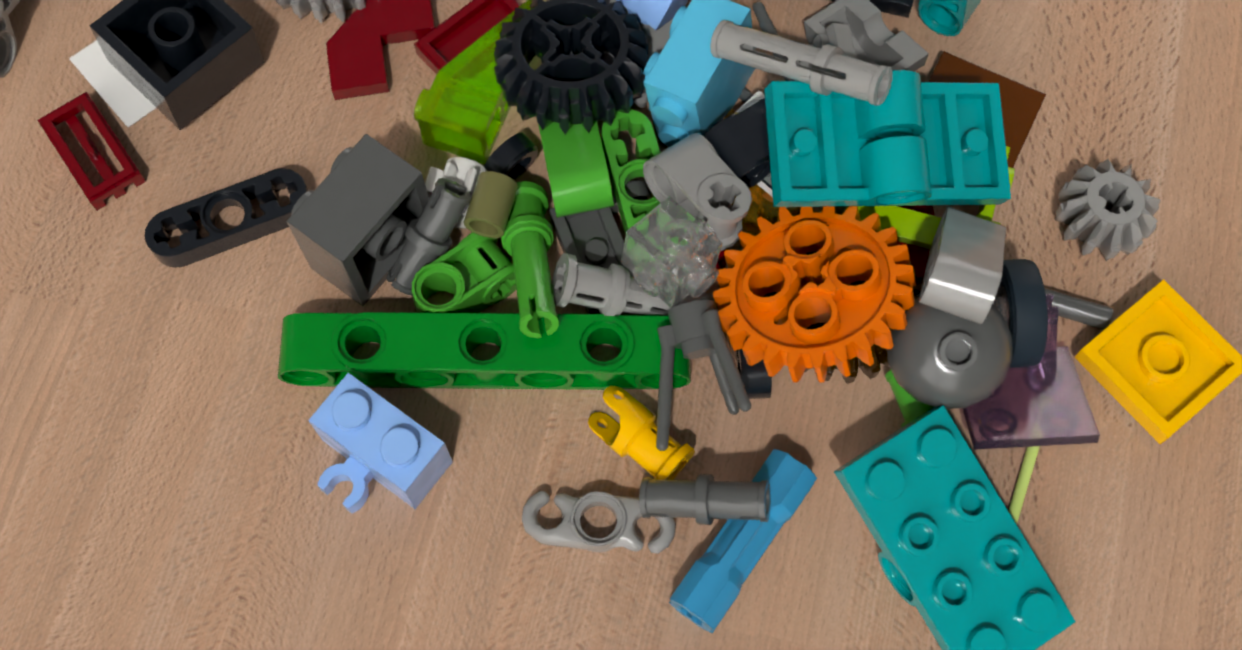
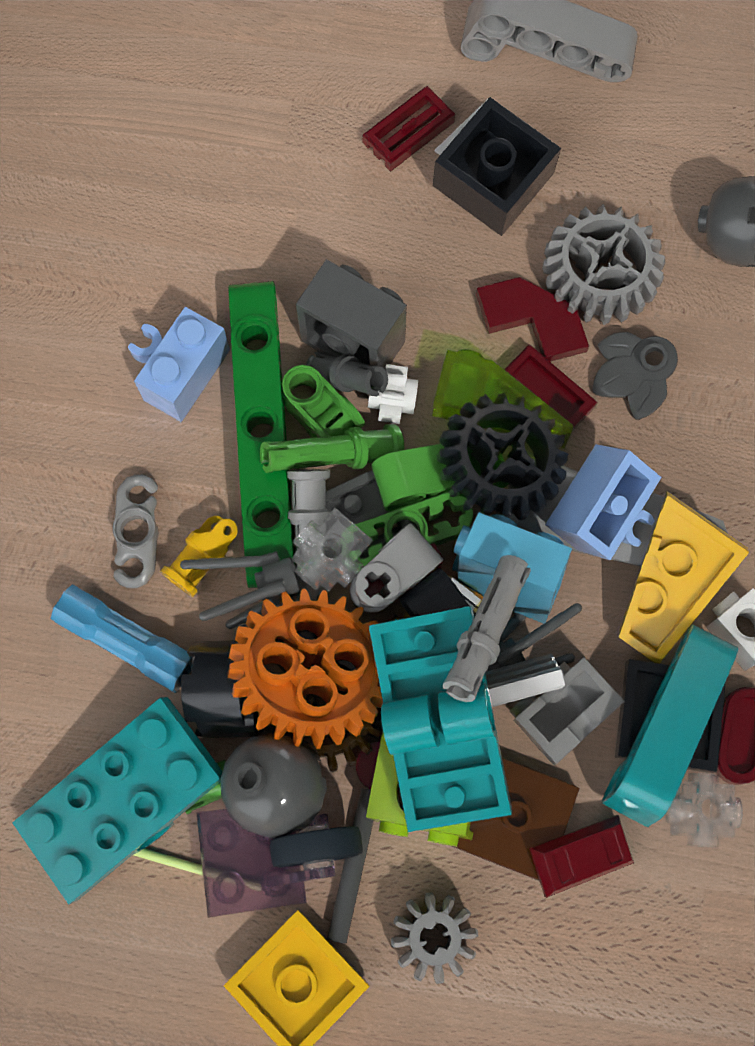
camera: 85 degrees right, 5 degrees up
(183, 217) = (361, 214): black beam -> none
(490, 204) = (371, 413): olive hinge -> none
(513, 156) = (425, 428): black tile -> none
(705, 499) = (143, 601): dark grey pin -> none
(819, 417) = (209, 697): none -> black cylinder
(964, 266) = (330, 783): light grey beam -> none
(1017, 56) = (581, 856): none -> dark red tile

